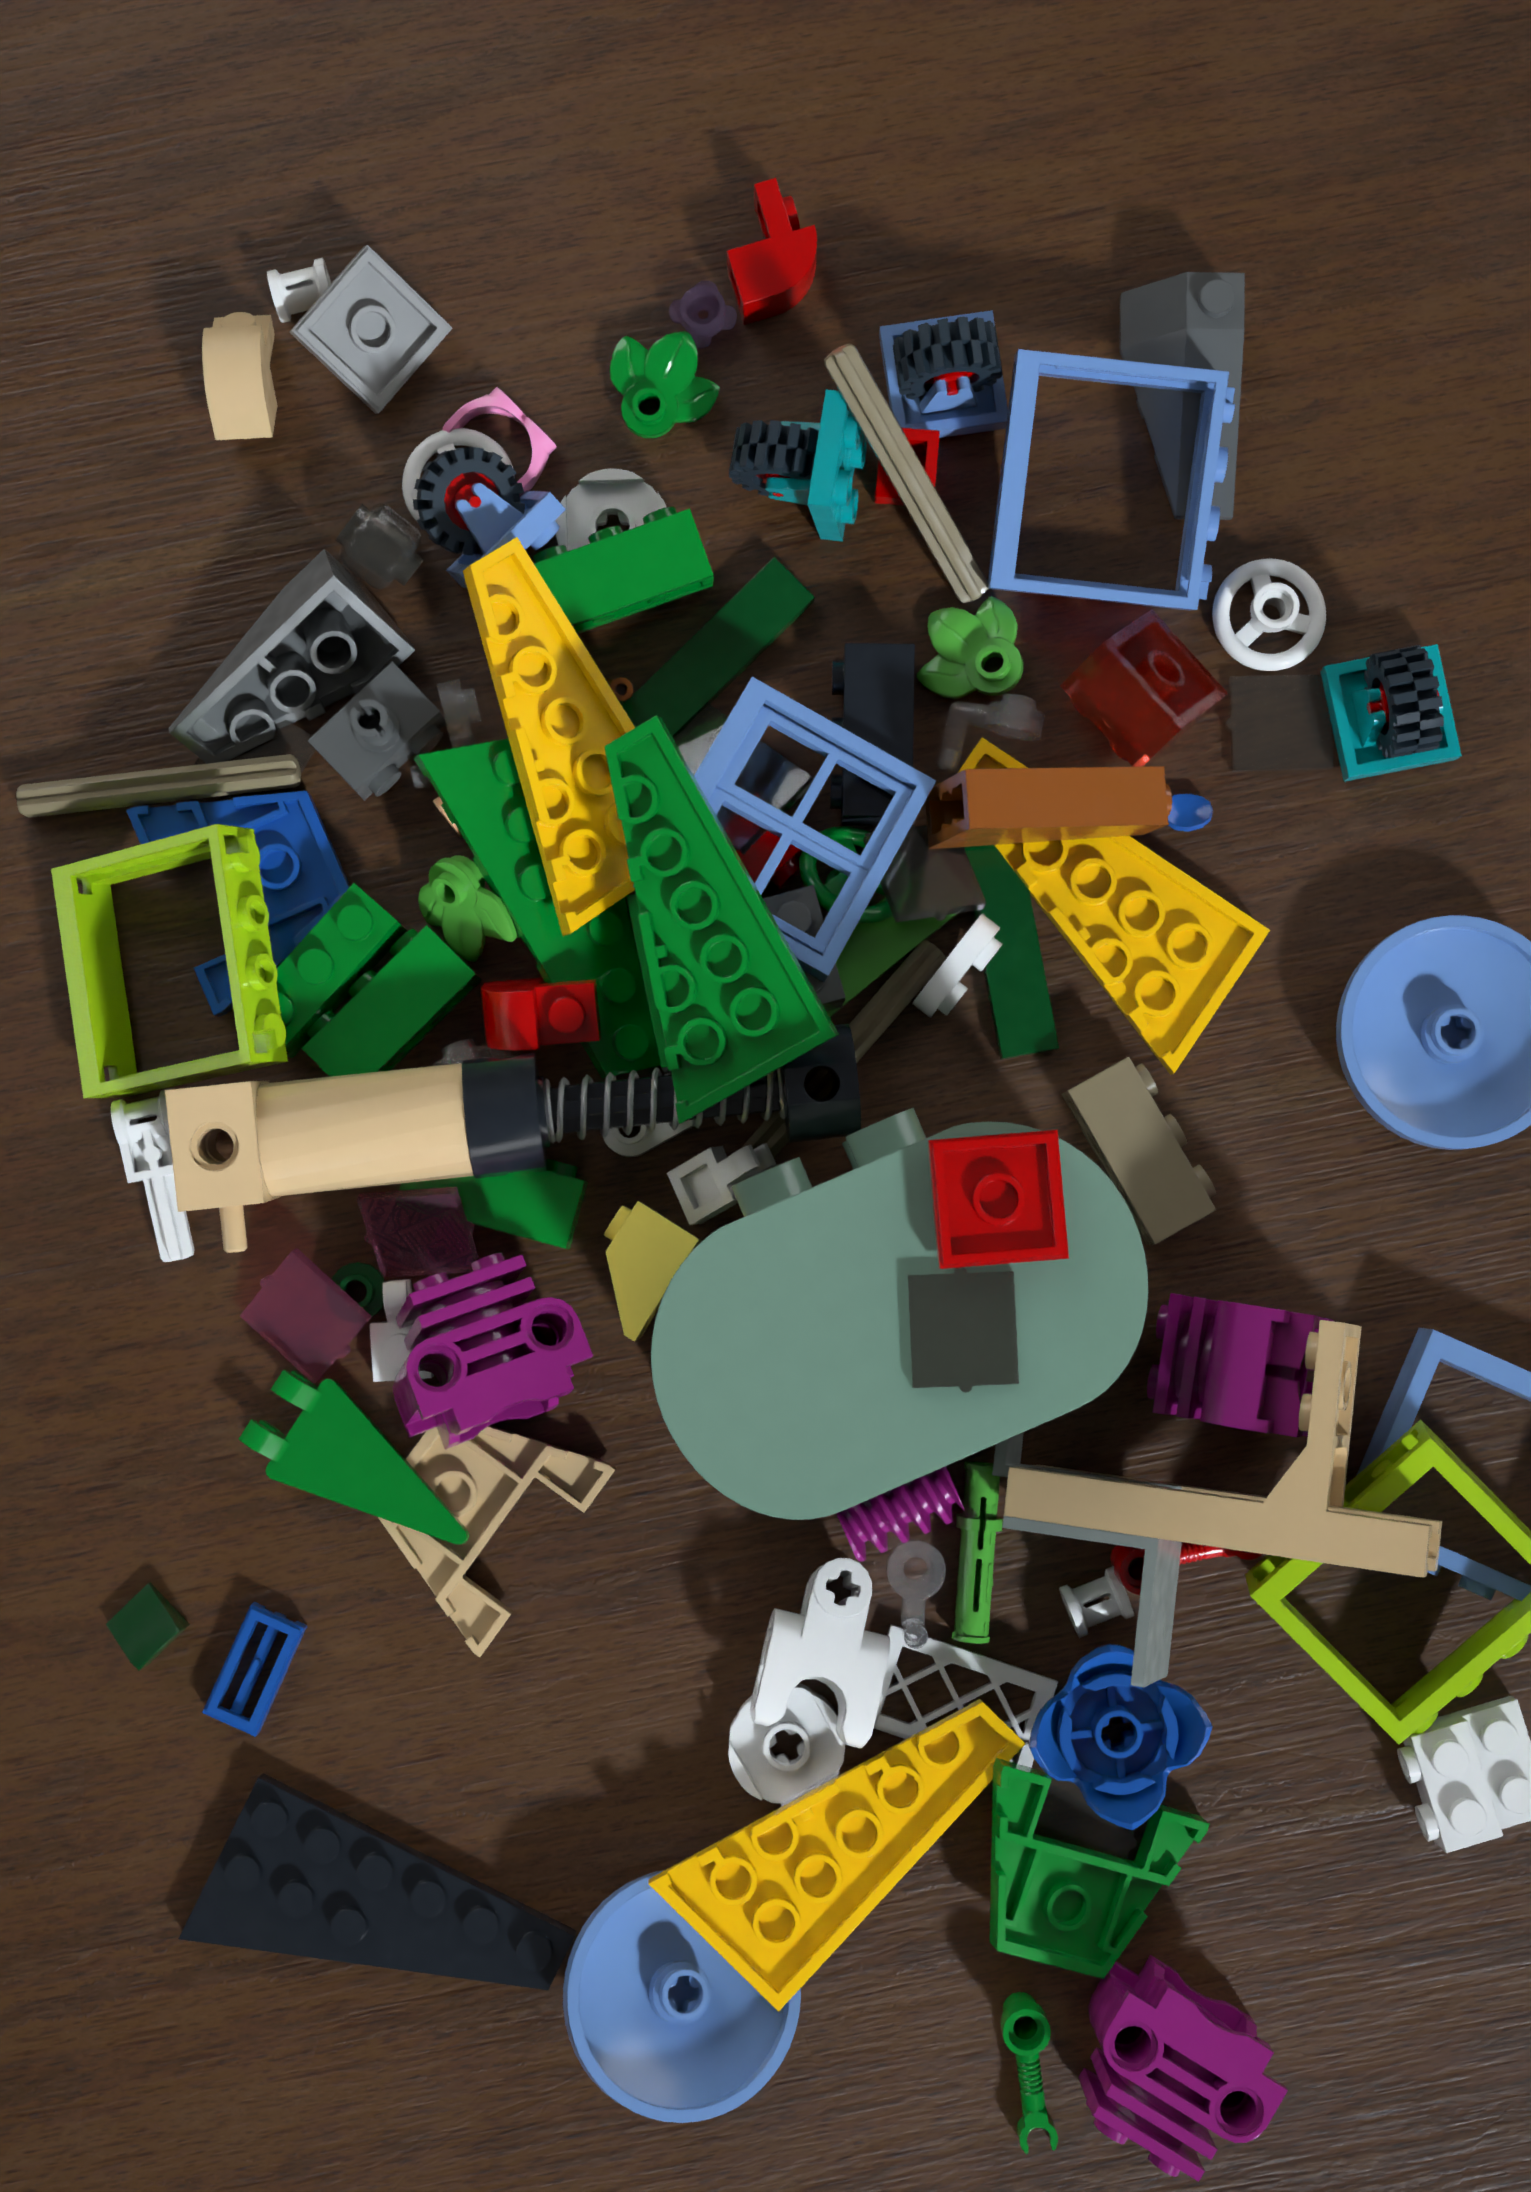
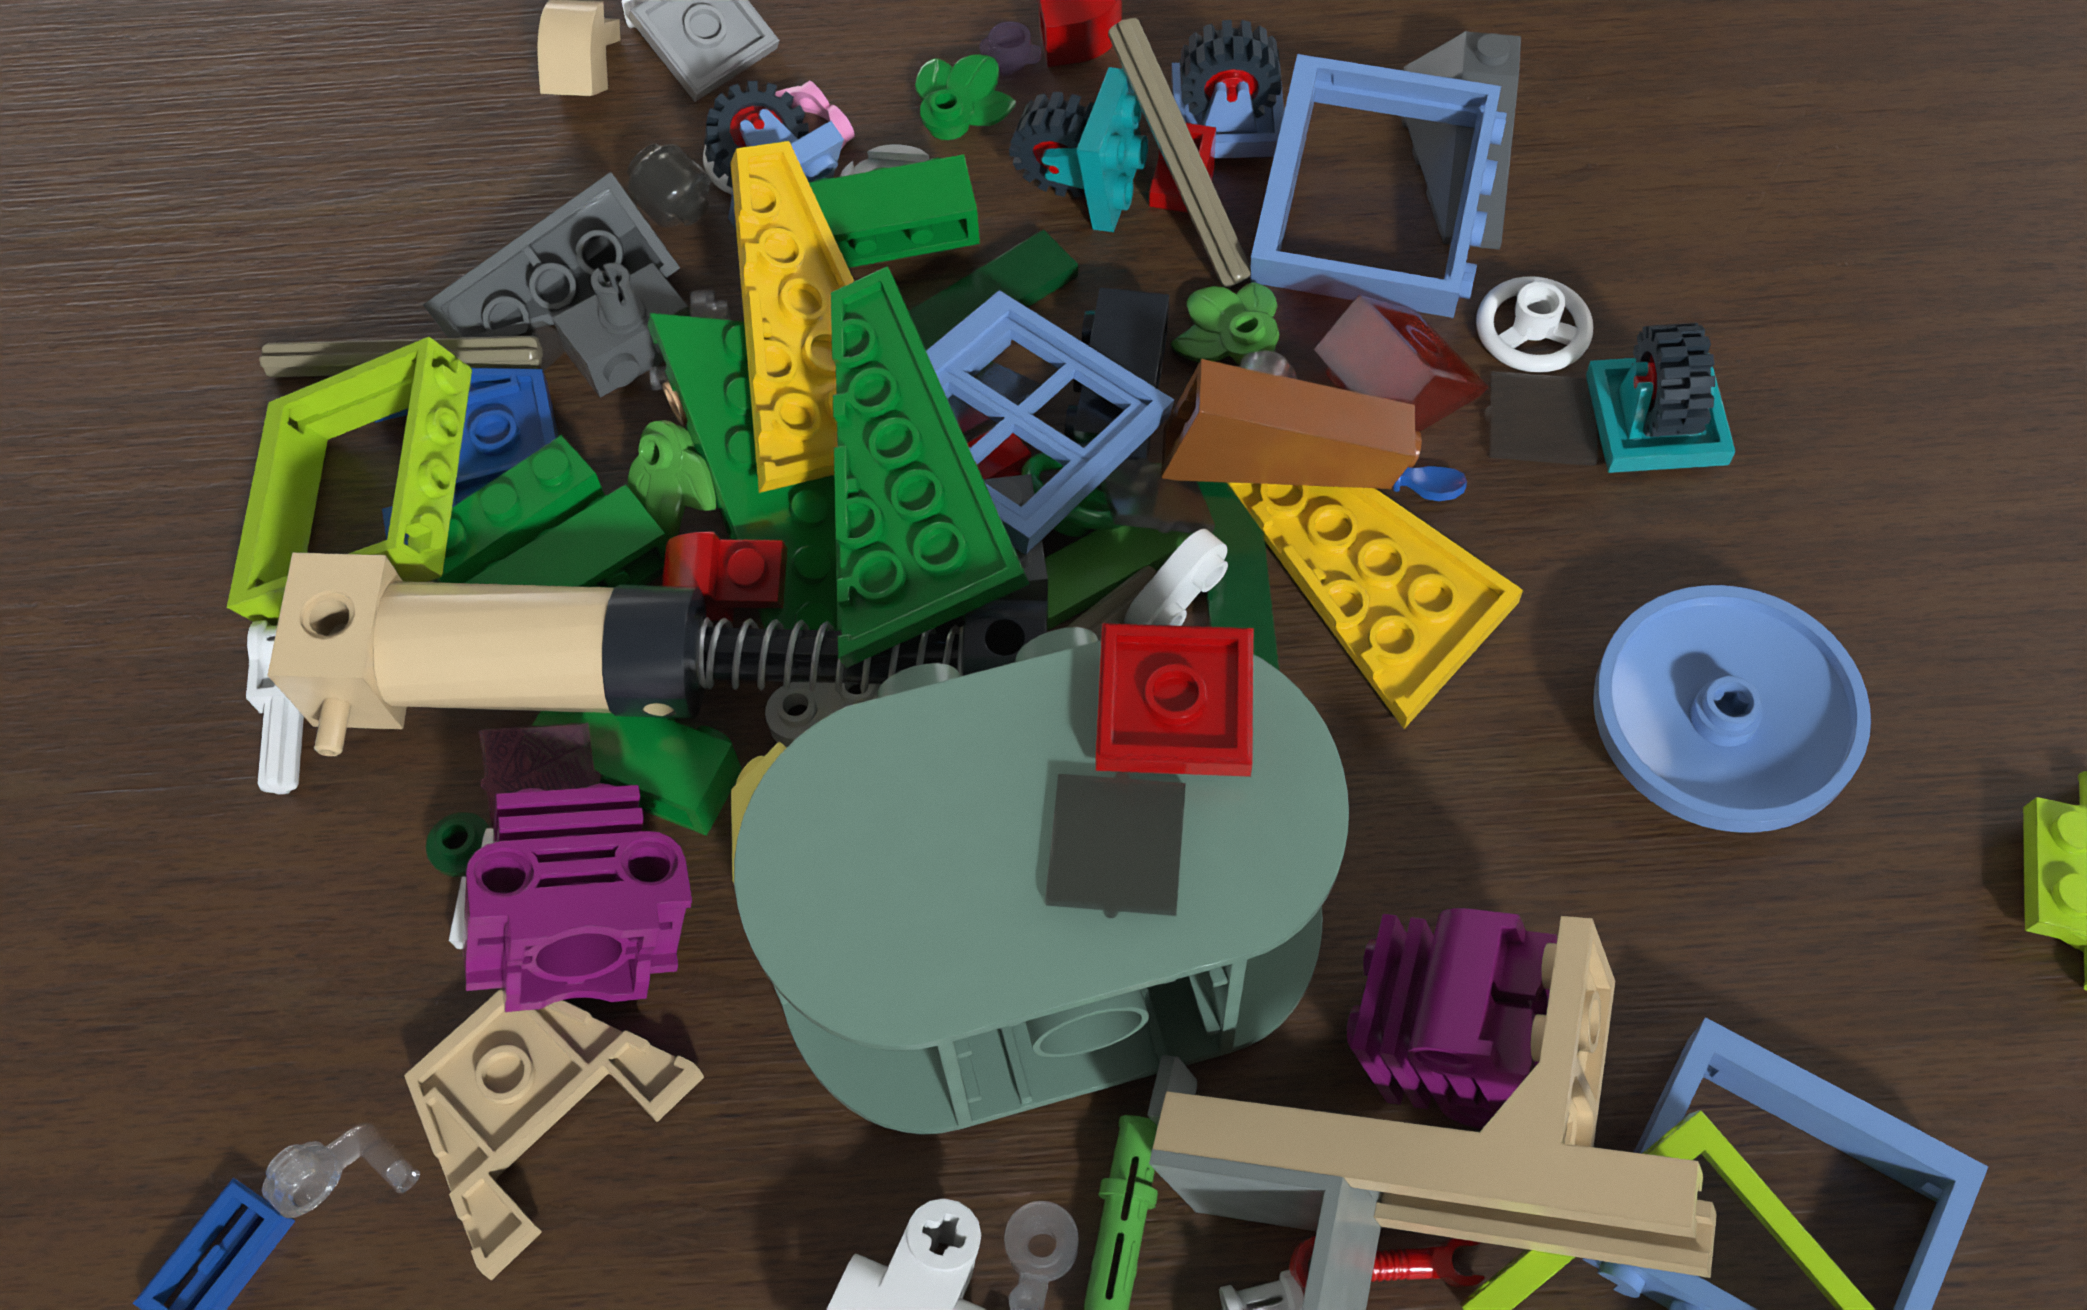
camera: 10 degrees right, 25 degrees down
(146, 1626) = (106, 1193): dark green slope -> none
(305, 1315) = (394, 860): clear pink piece -> none
(310, 1596) = (309, 1172): none -> clear plate
(347, 1459) = (394, 1019): green flag -> none
(898, 1508) = (1030, 1152): magenta piece -> none
(1141, 1150) = (1389, 836): dark tan brick -> none

